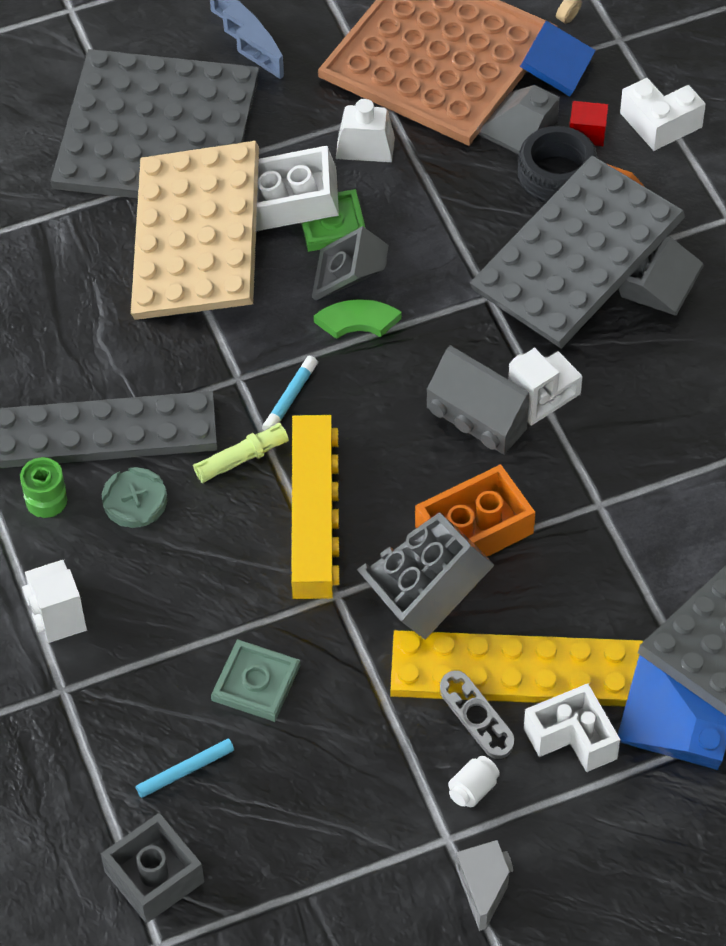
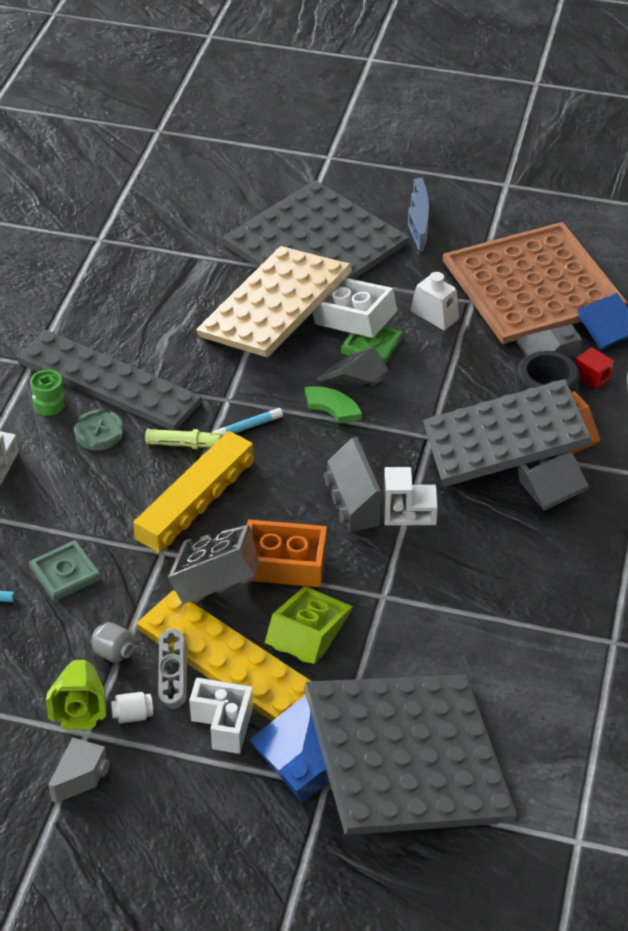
camera: 35 degrees right, 10 degrees down
(391, 726) = (112, 642): none -> light grey head
(414, 804) = (77, 697): none -> lime cone
(563, 581) = (307, 624): none -> lime slope

